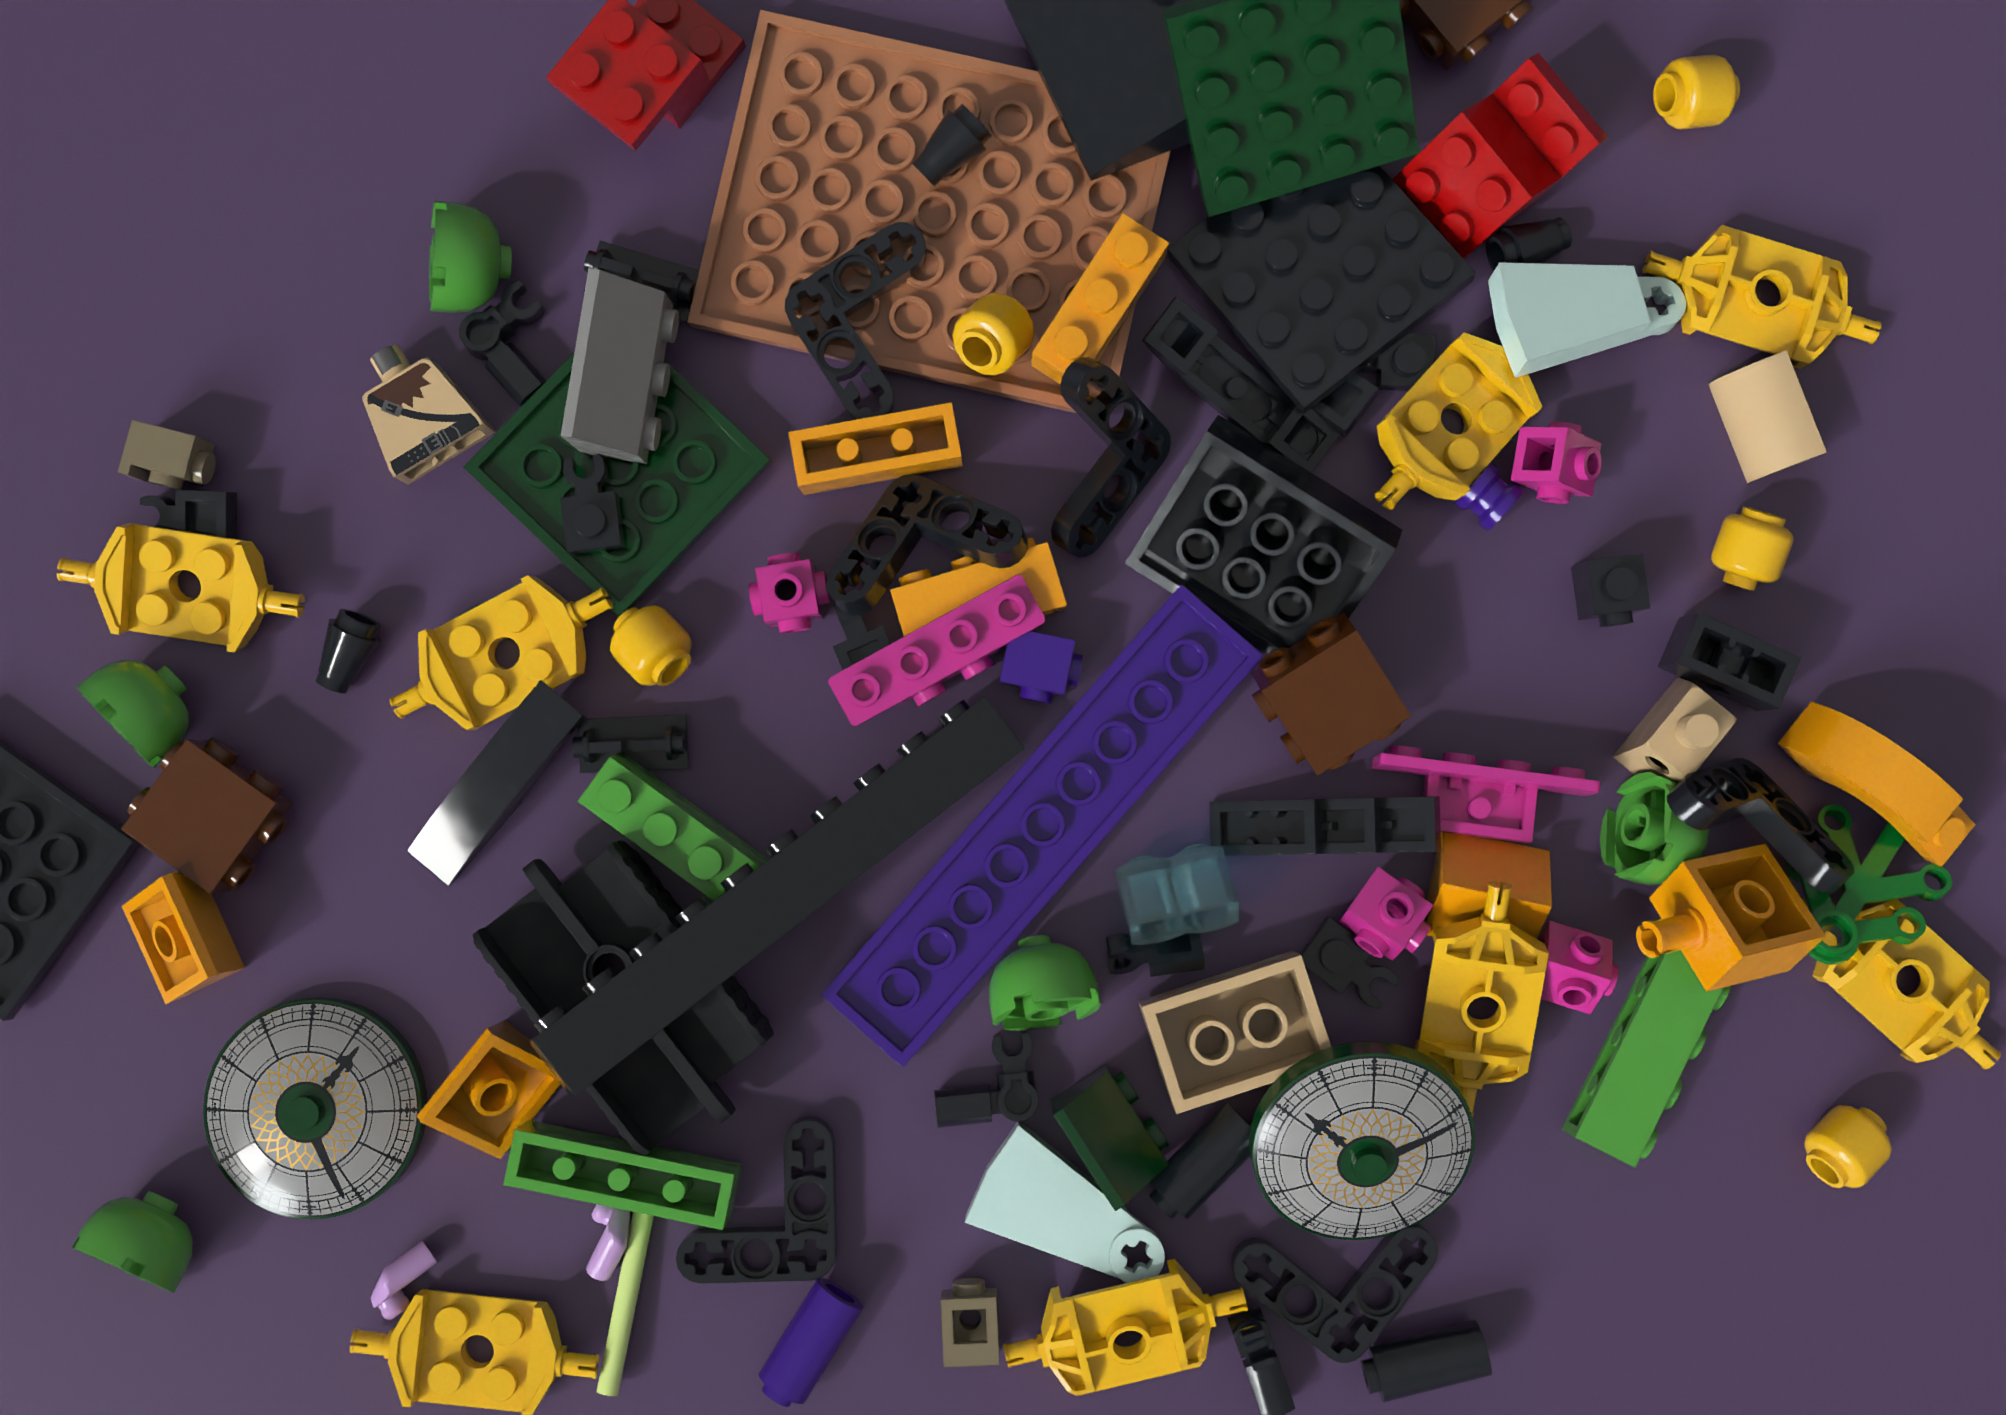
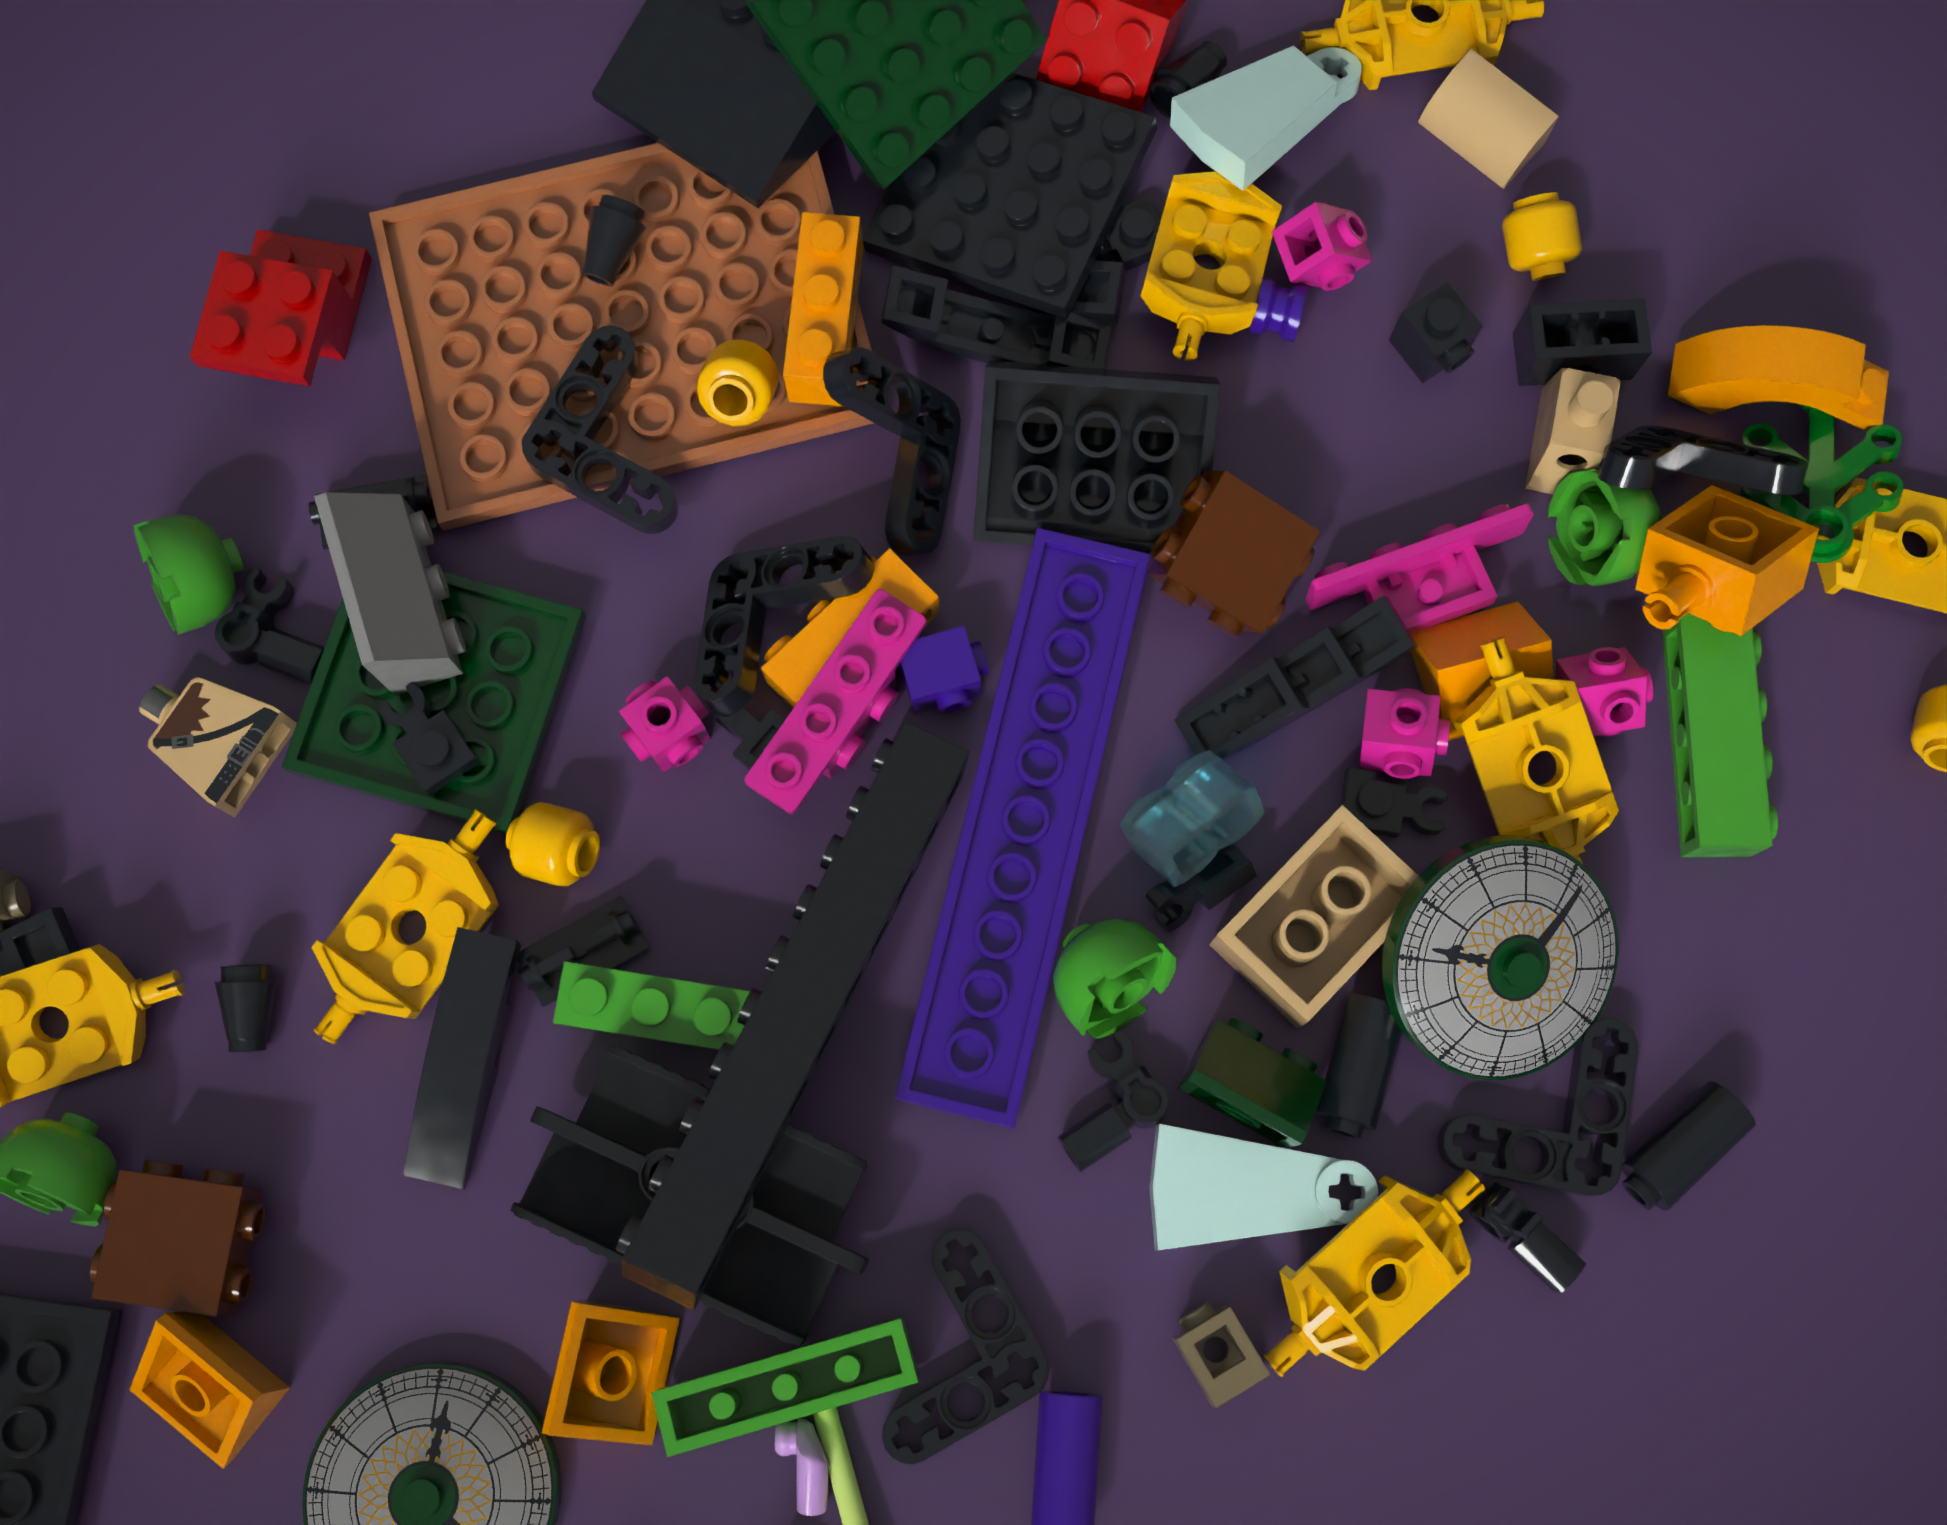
camera: 30 degrees left, 10 degrees down
(875, 449) = (680, 546): light orange brick -> none

